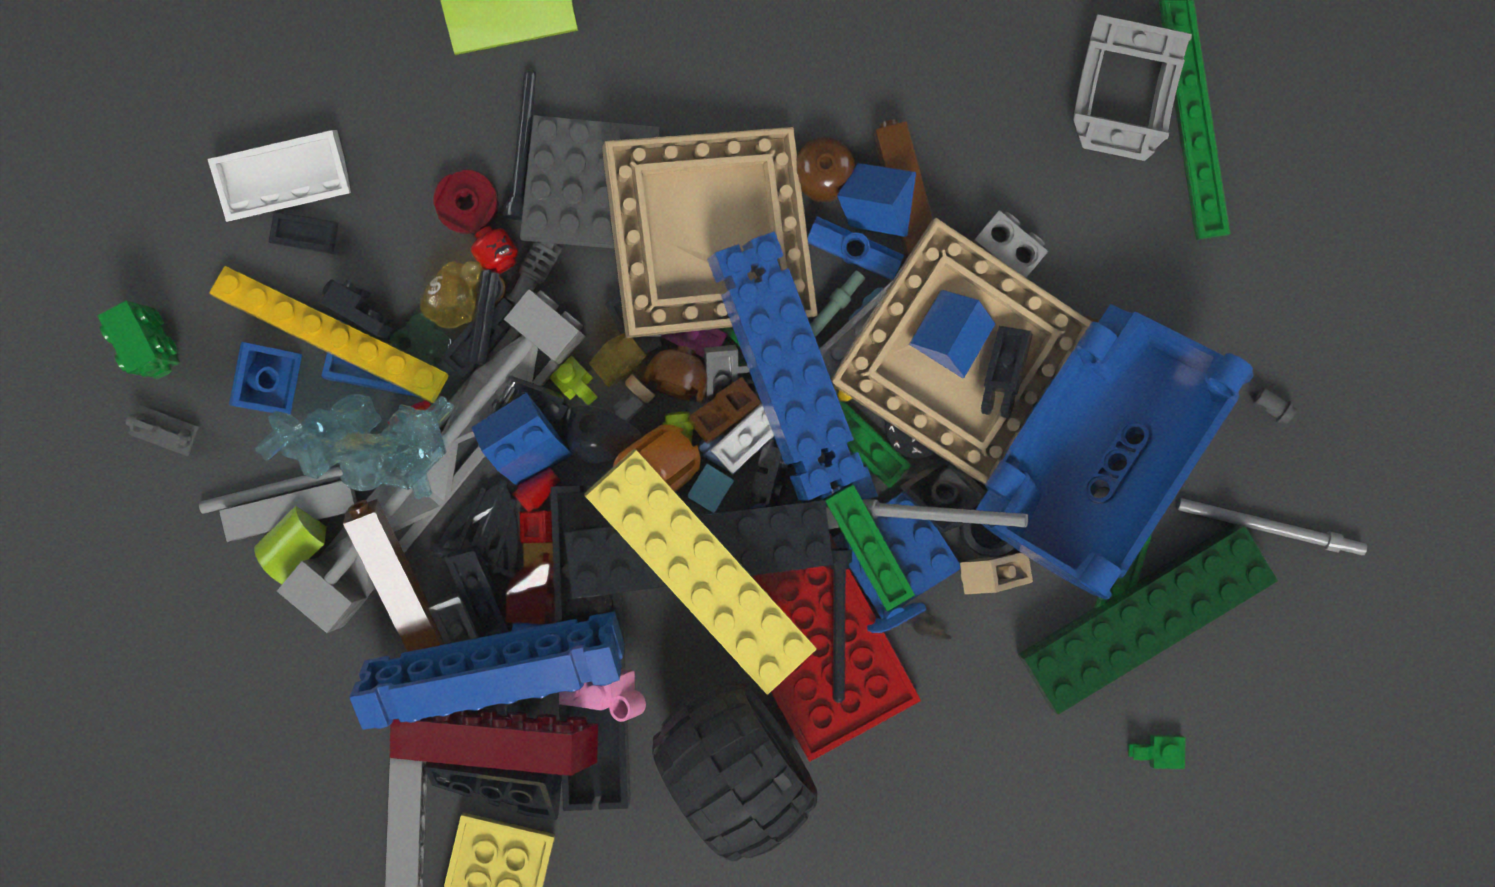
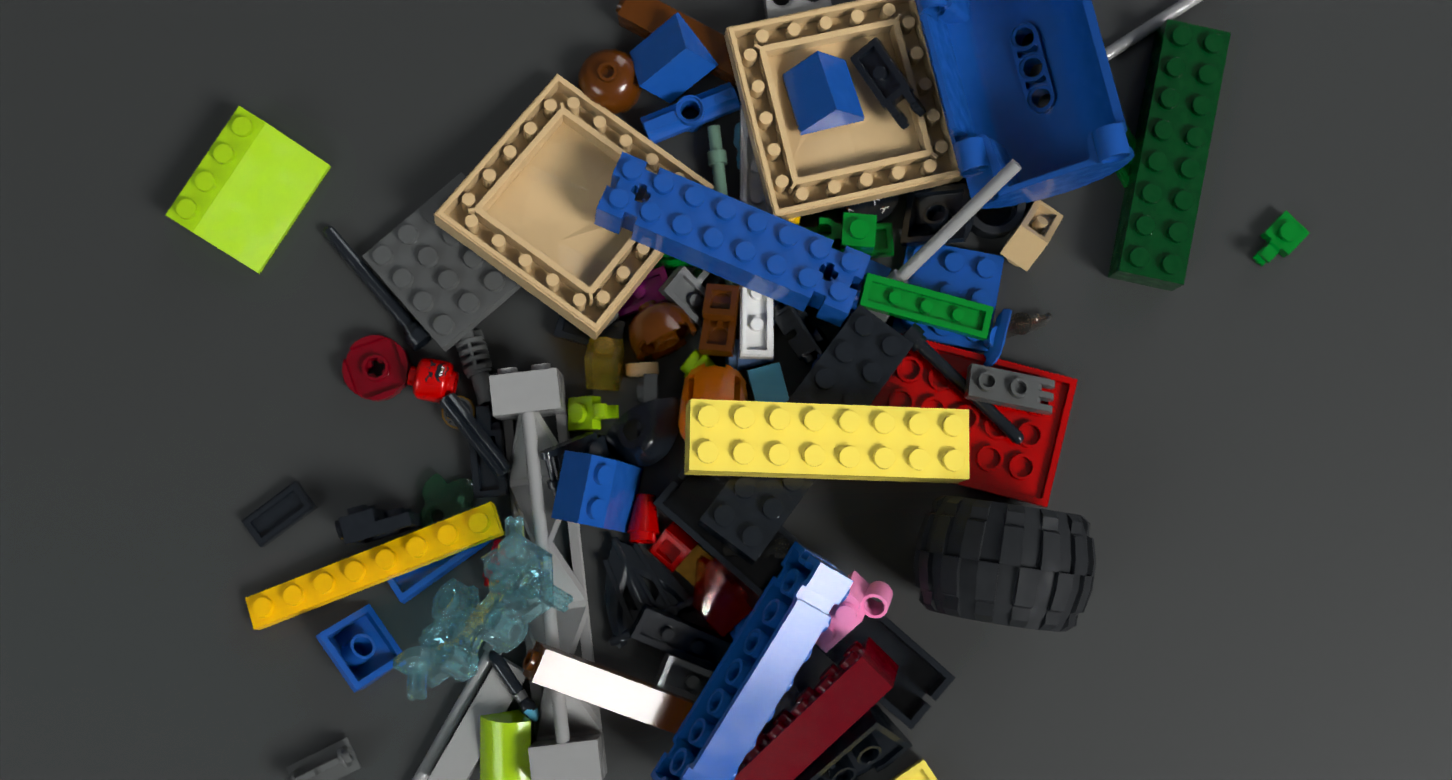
camera: 45 degrees left, 5 degrees down
(139, 339) = (236, 716): green brick -> none
(280, 175) = (219, 489): white slope -> none
(333, 530) = (526, 704): none -> black piece
(450, 295) = (436, 444): clear yellow piece -> none
(866, 659) = (1008, 389): none -> dark grey hinge
(874, 447) = (854, 231): none -> green brick

